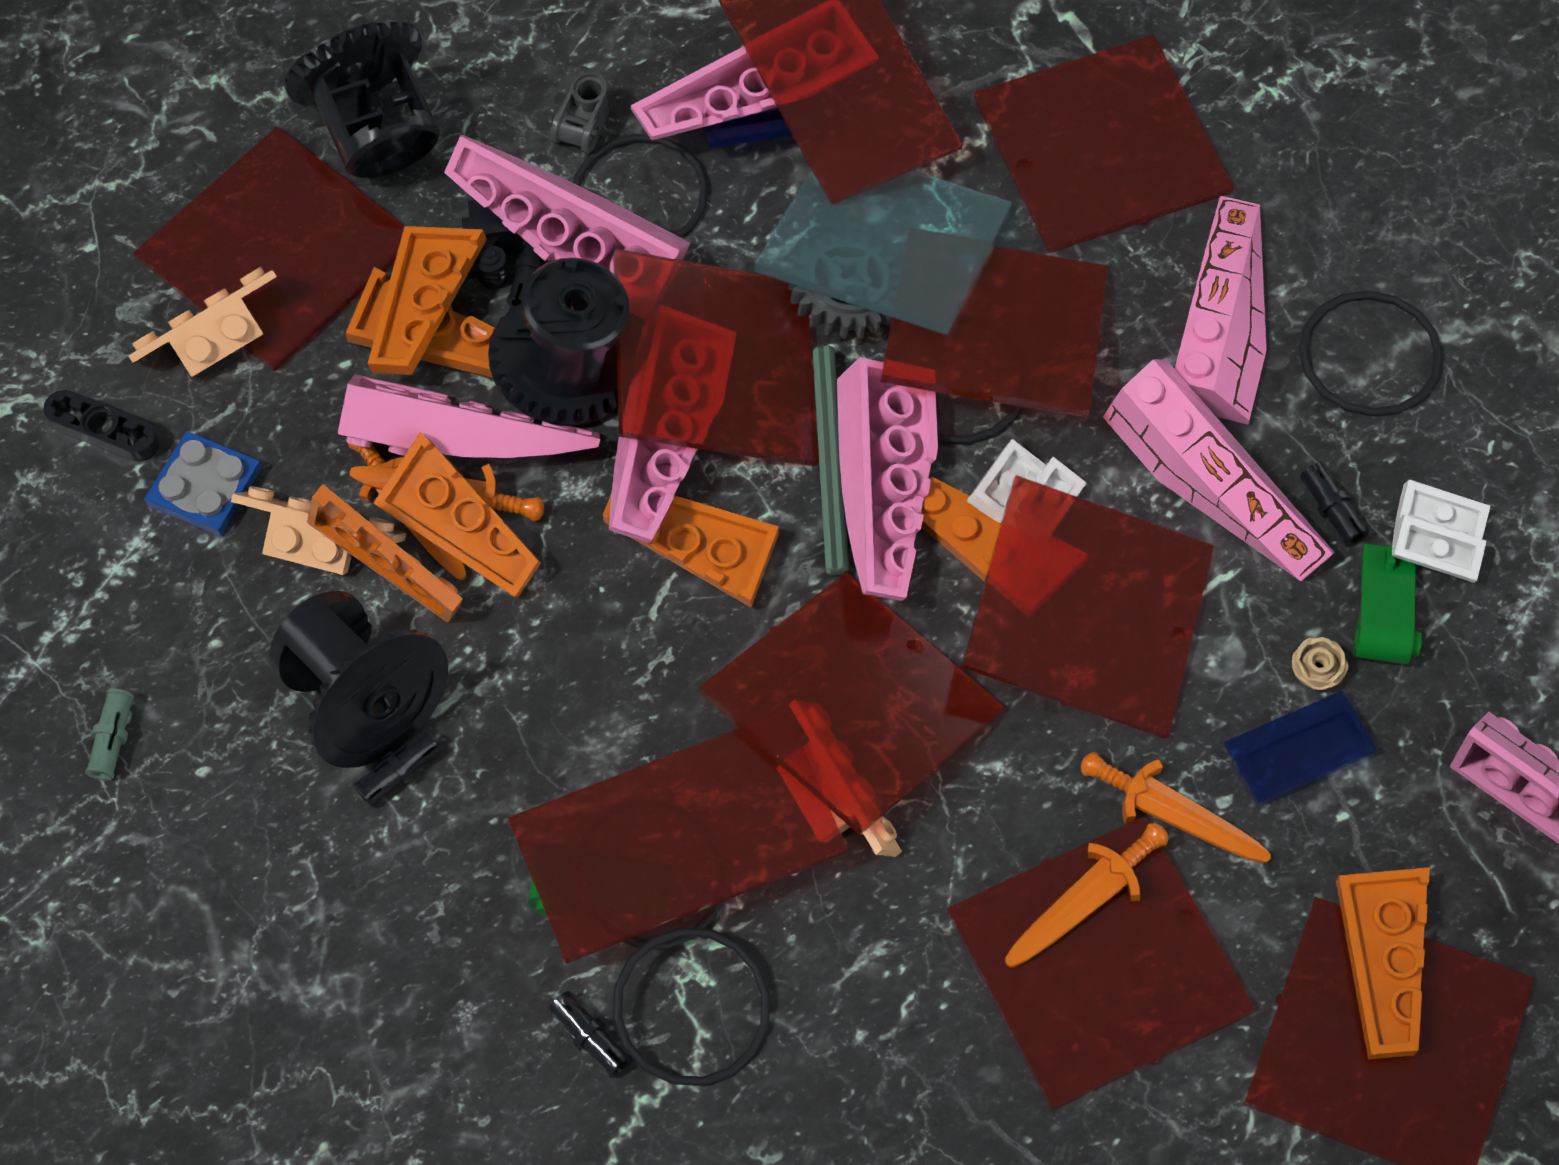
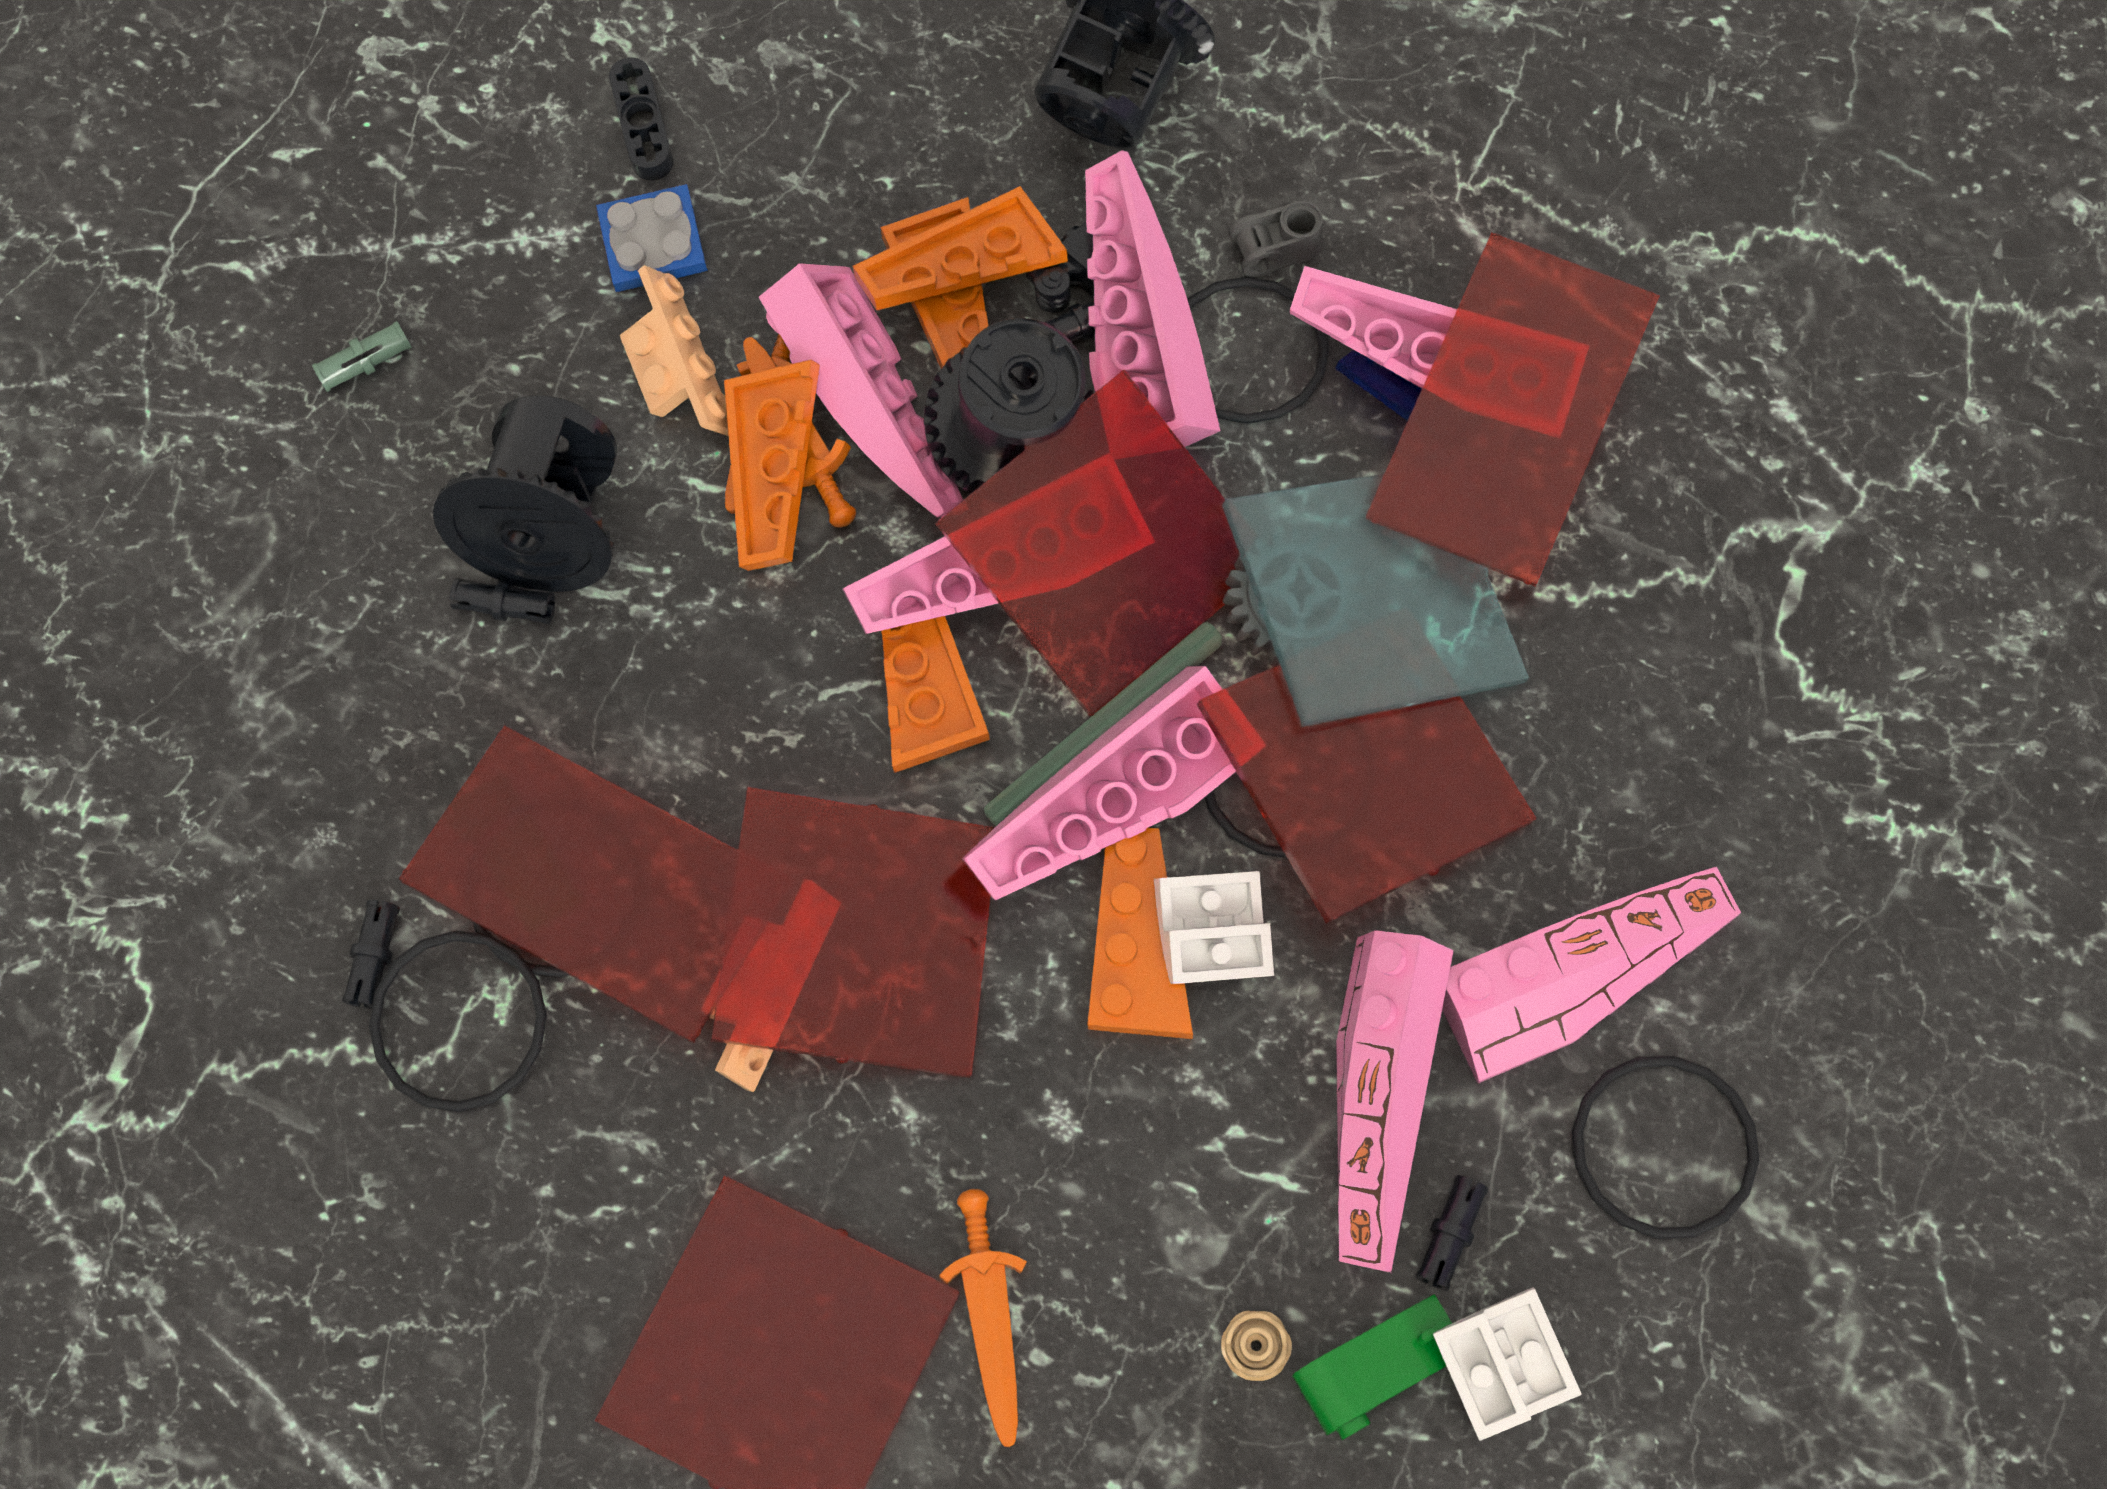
camera: 55 degrees right, 5 degrees up
(214, 331) = (795, 127): light nougat bracket -> none
(283, 215) = (926, 107): clear red piece -> none
(377, 551) = (667, 375): orange wing -> none
(1088, 607) = (1133, 1076): clear red piece -> none
(1088, 894) = (832, 1297): orange sword -> none
(1102, 143) = (1677, 712): clear red piece -> none
(1300, 747) = (1150, 1392): clear blue piece -> none

